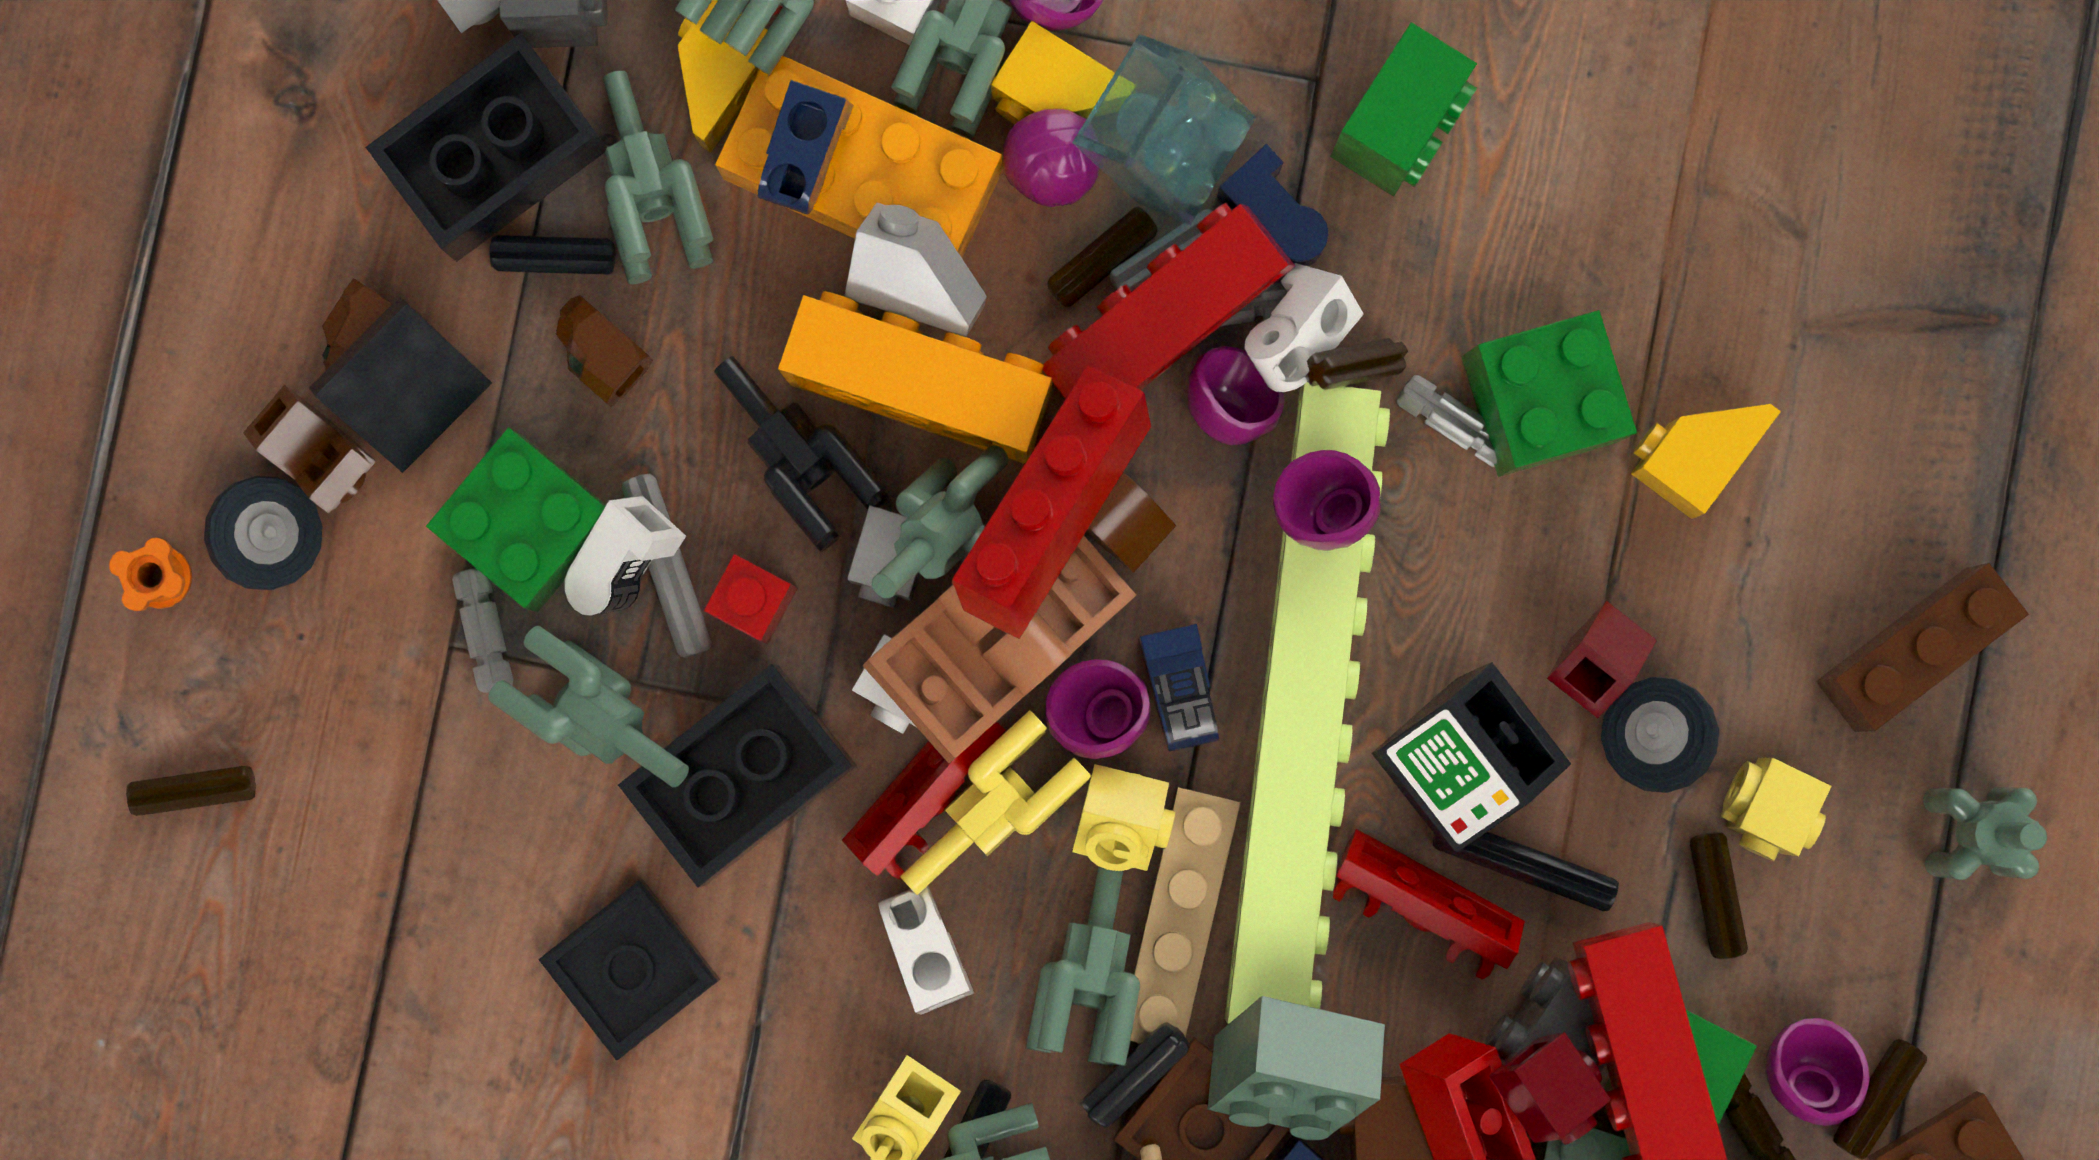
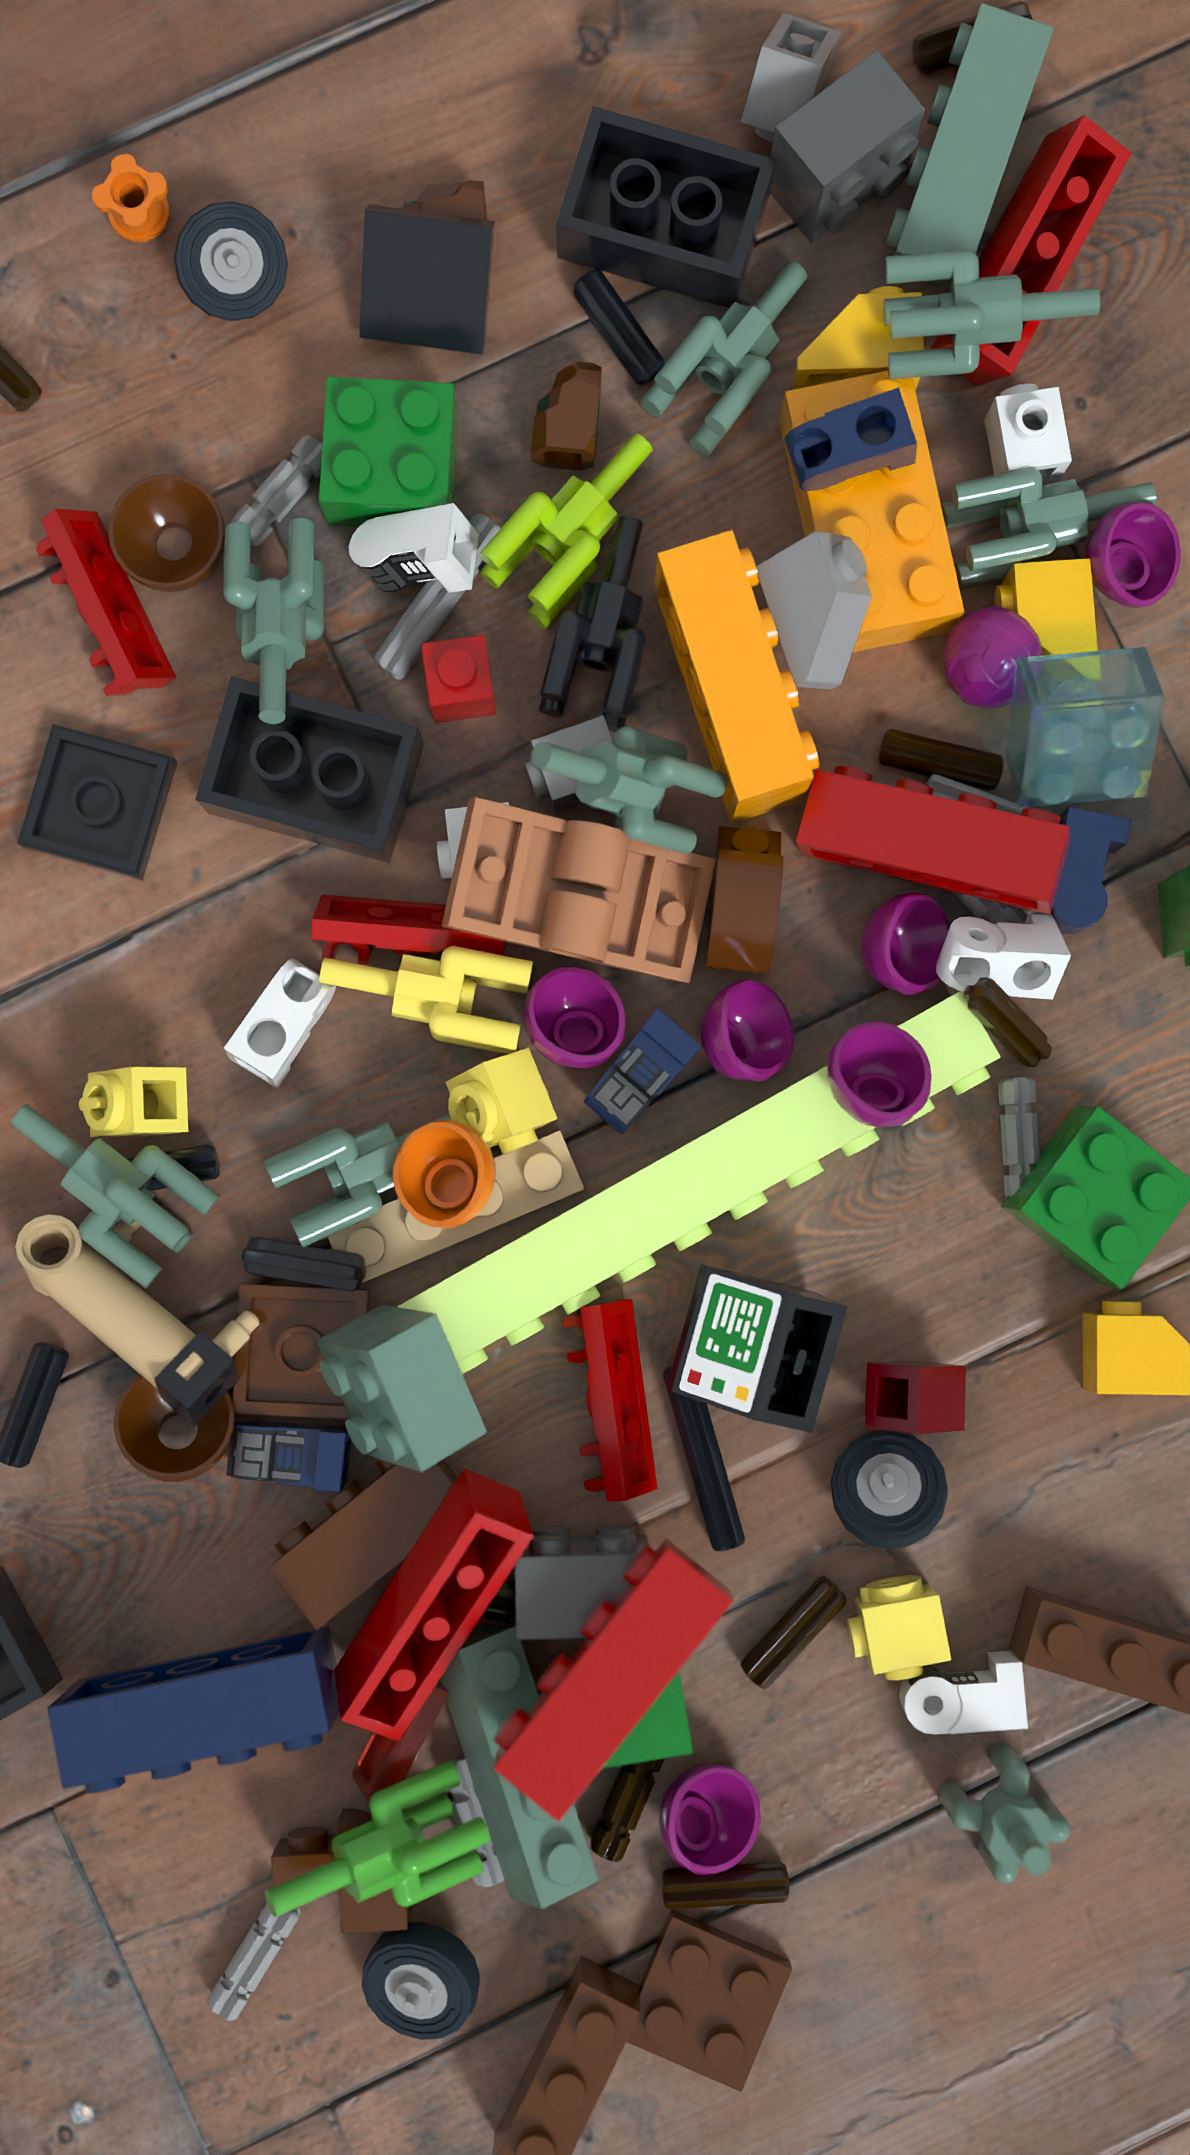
camera: 50 degrees right, 0 degrees up
(309, 449) = (323, 249): reddish brown brick -> none
(420, 743) = (147, 512): none -> reddish brown piece
(469, 841) = (105, 601): none -> red plate
(692, 423) = (562, 532): none -> lime plant
(1052, 502) = (713, 849): red brick -> none
(1150, 907) = (444, 1173): none -> orange piece
(1210, 577) = (747, 1032): none -> magenta piece
(1552, 1089) = (532, 1608): dark red brick -> none
(1872, 796) = (967, 1700): none -> white leg

